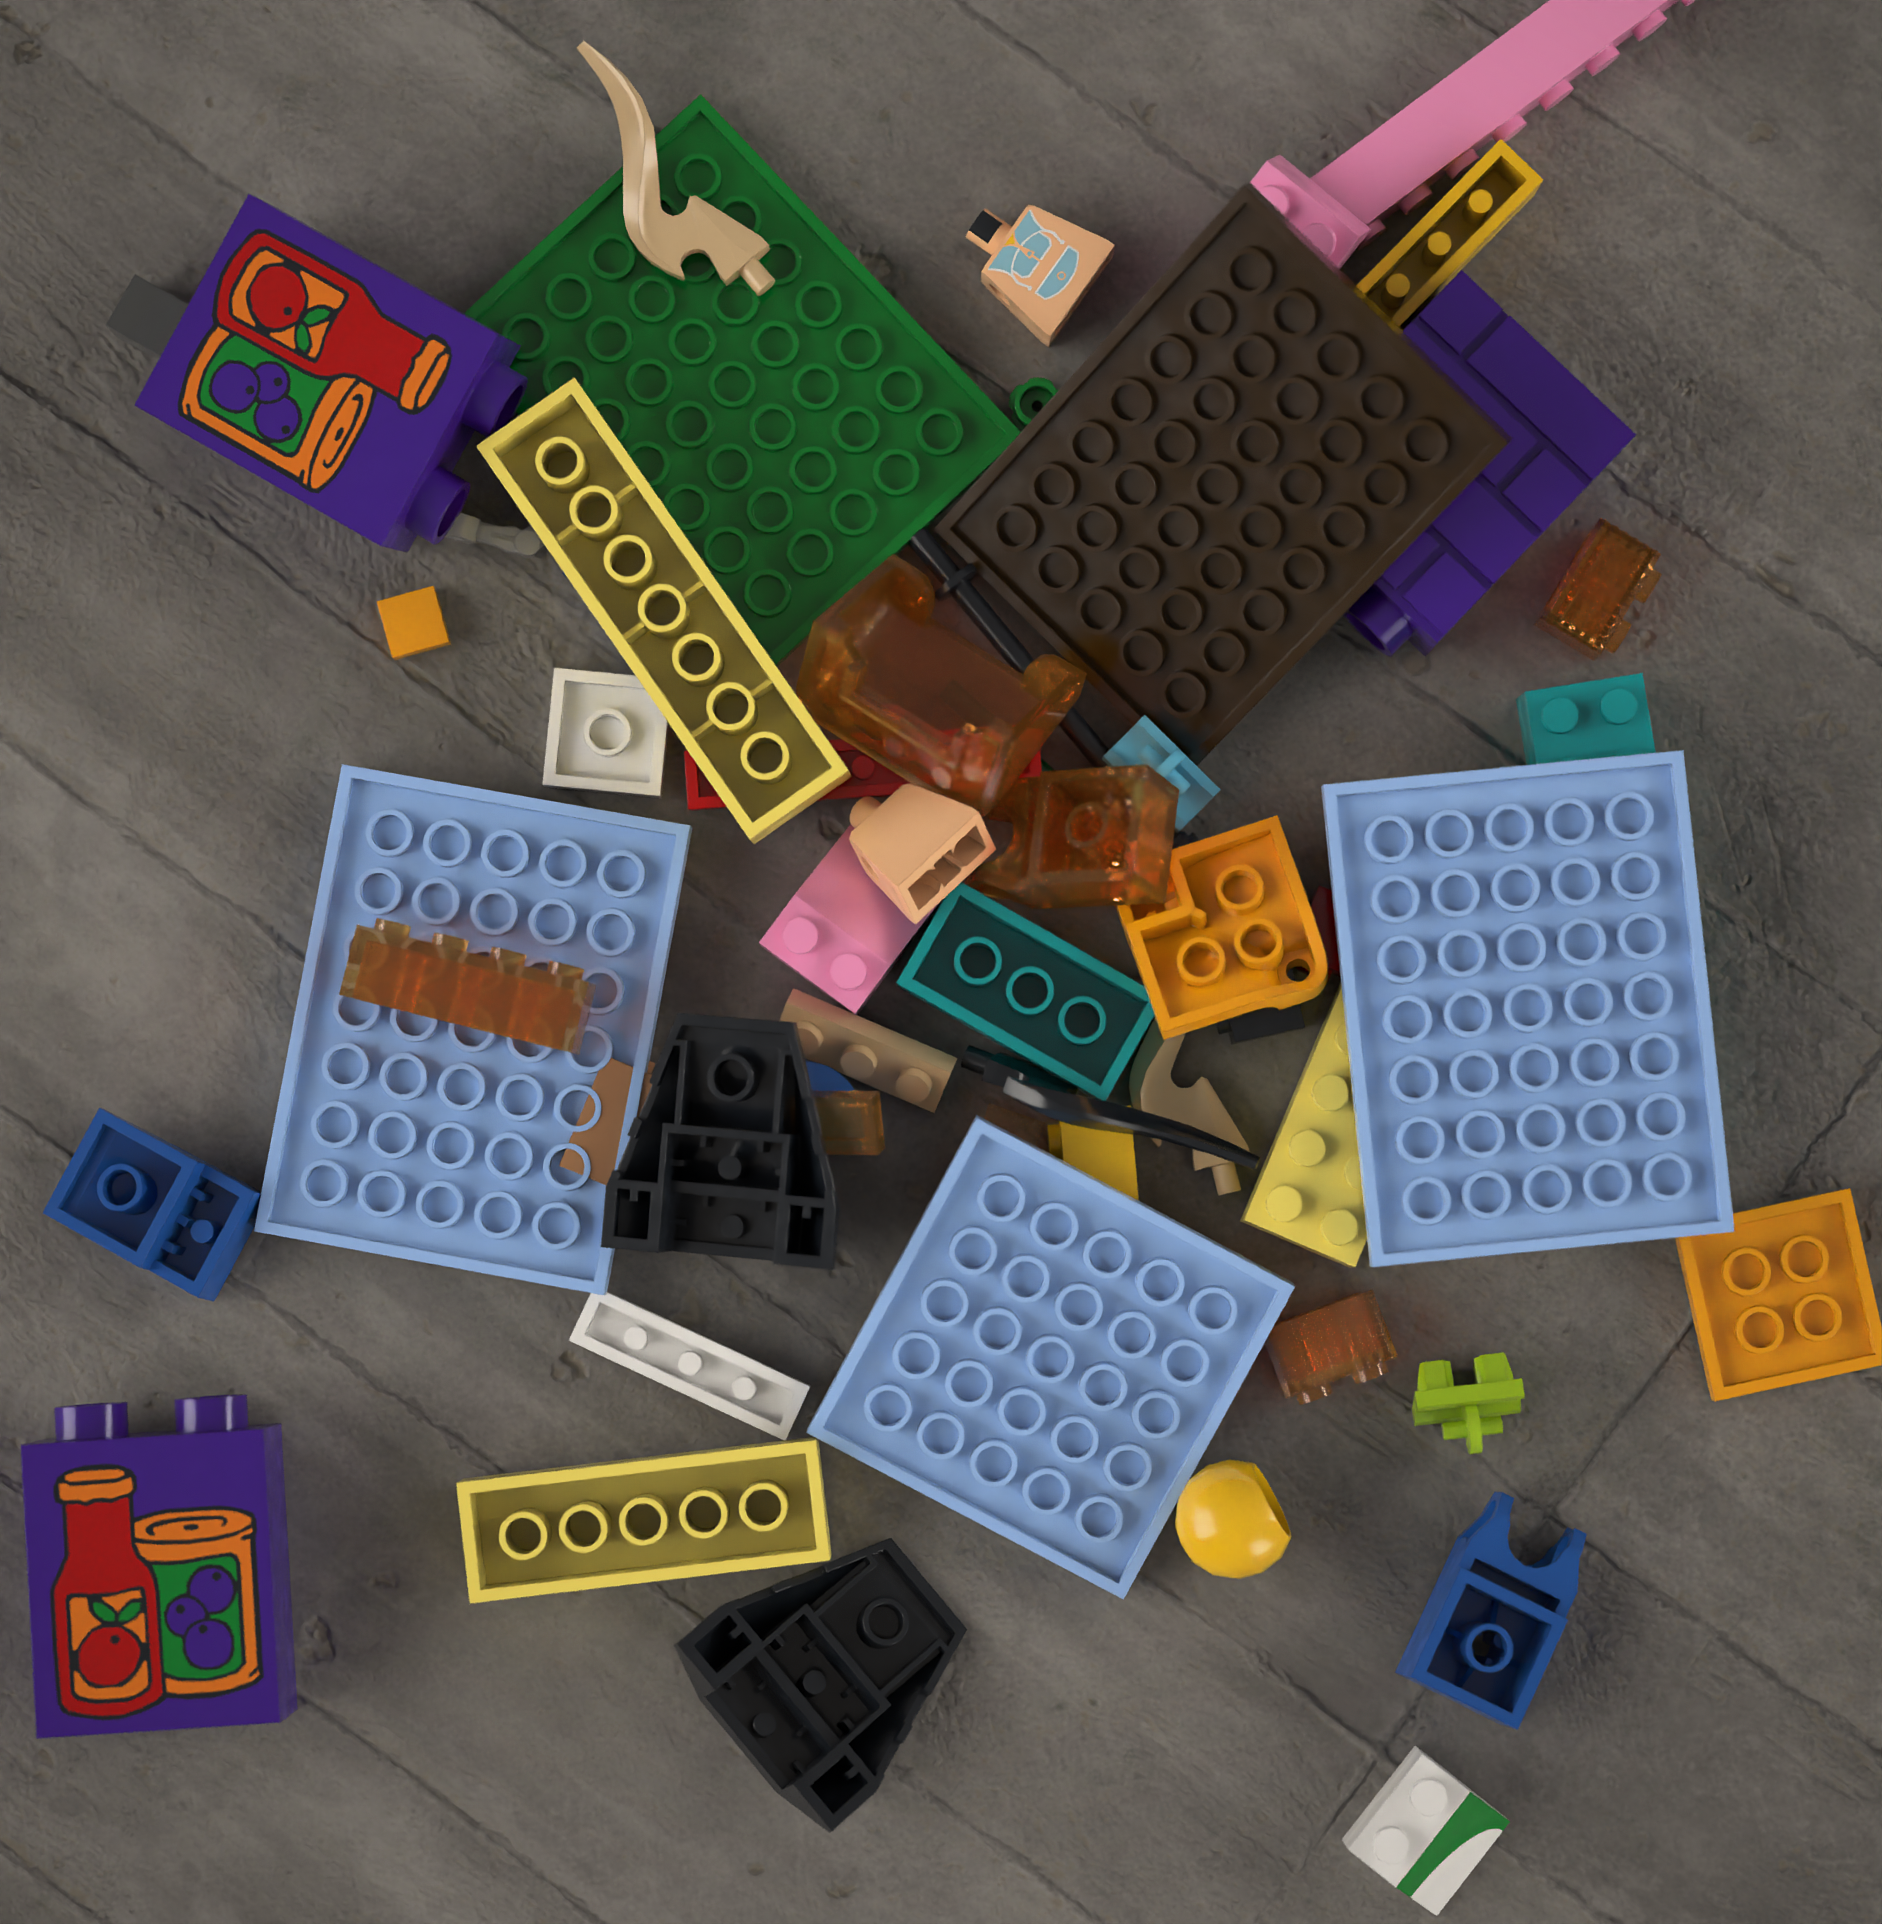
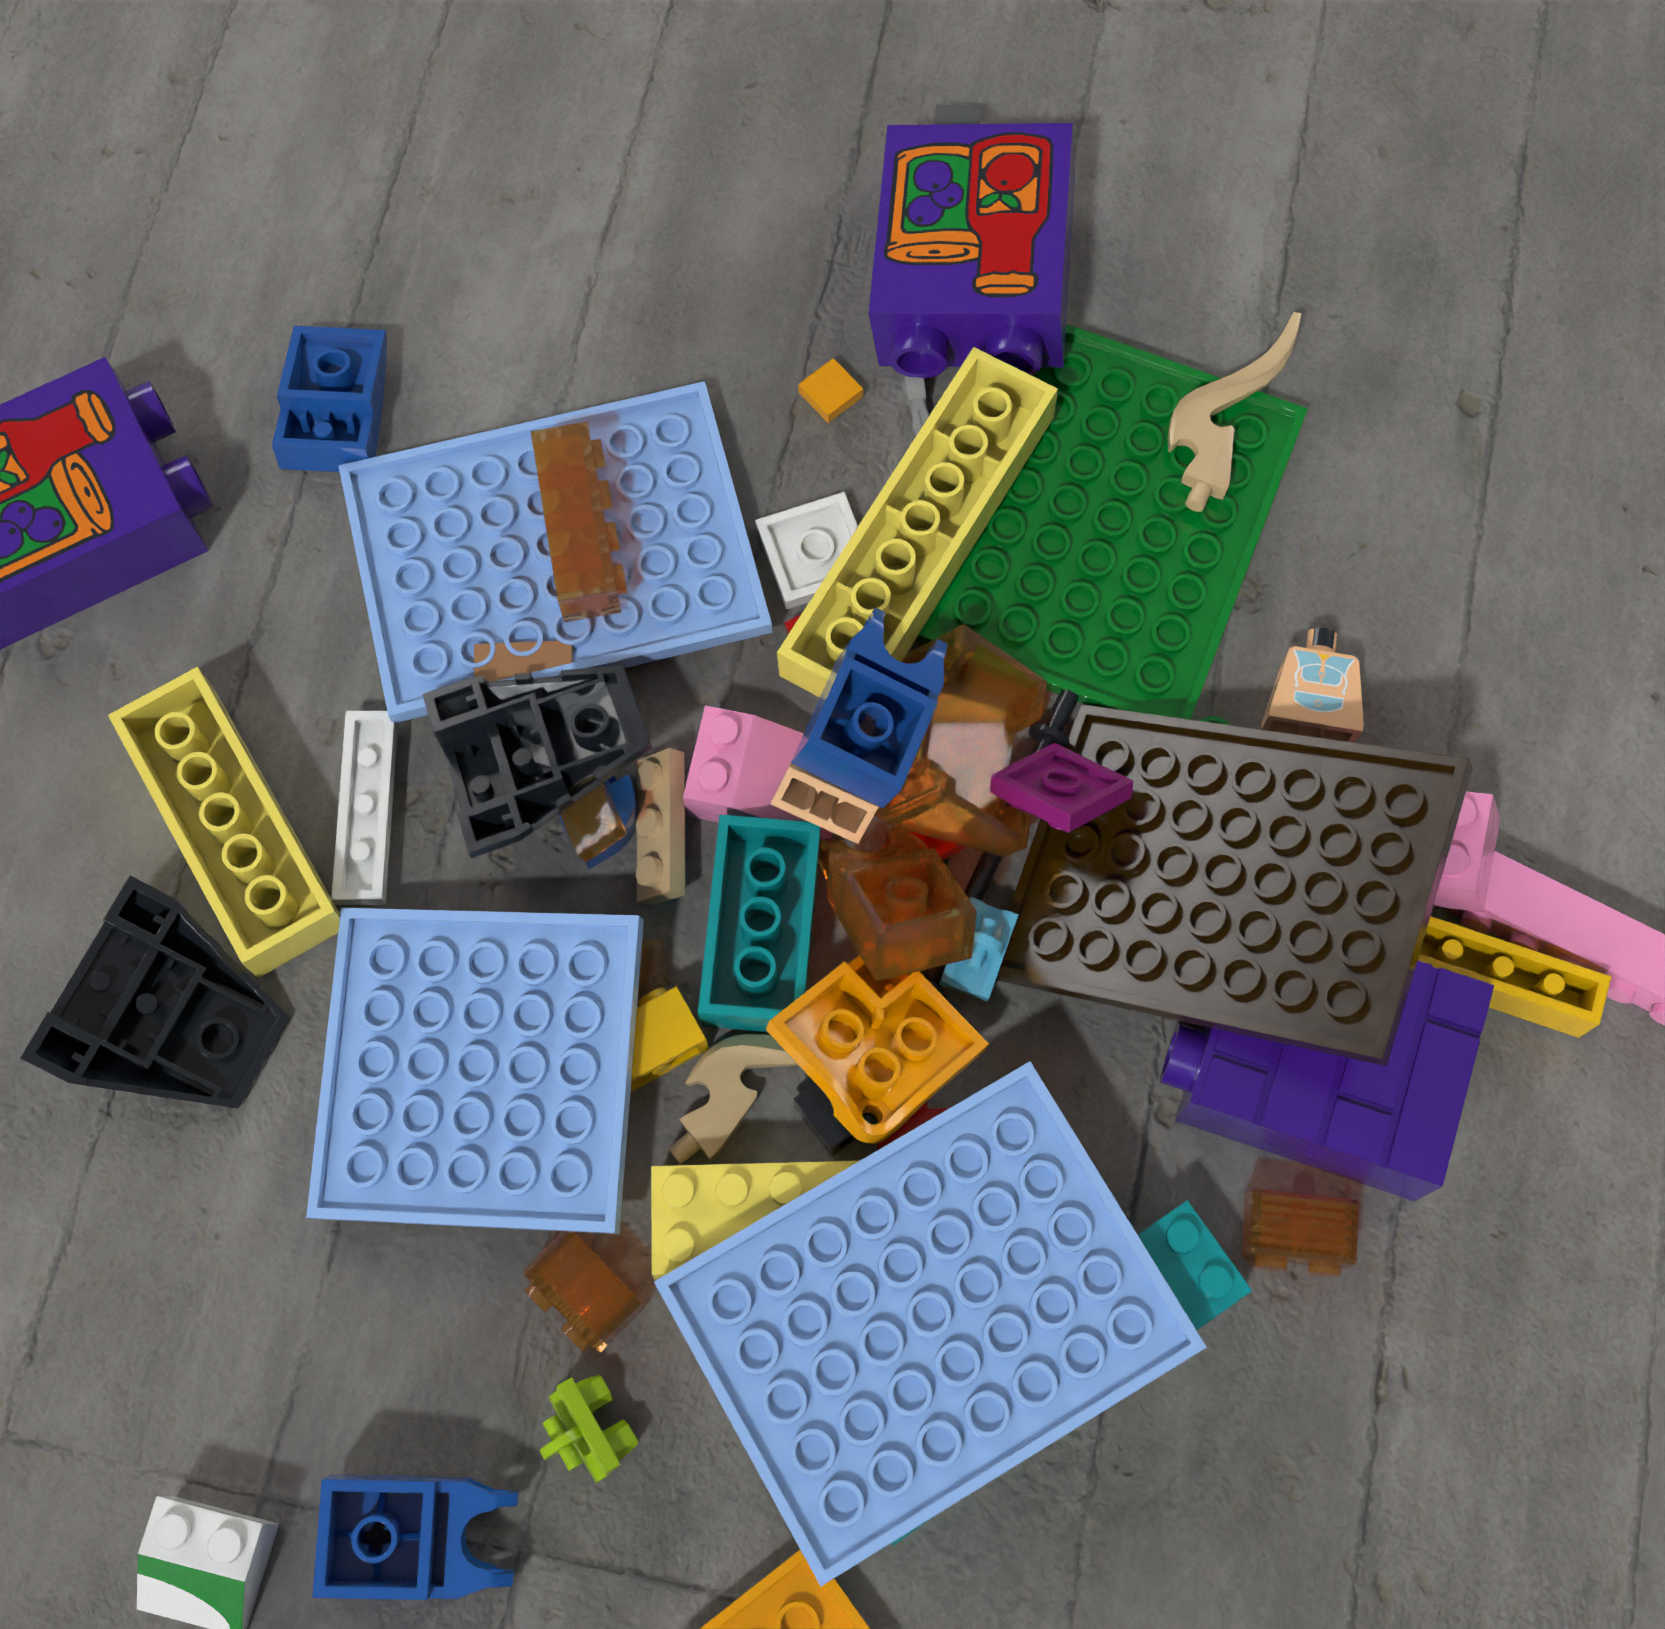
camera: 65 degrees right, 15 degrees down
(867, 756) = (875, 696): none -> blue brick
(1035, 603) = (1061, 787): none -> magenta plate
(1059, 1101) = (683, 980): black piece -> none
(1231, 1520) = (403, 1274): yellow helmet -> none

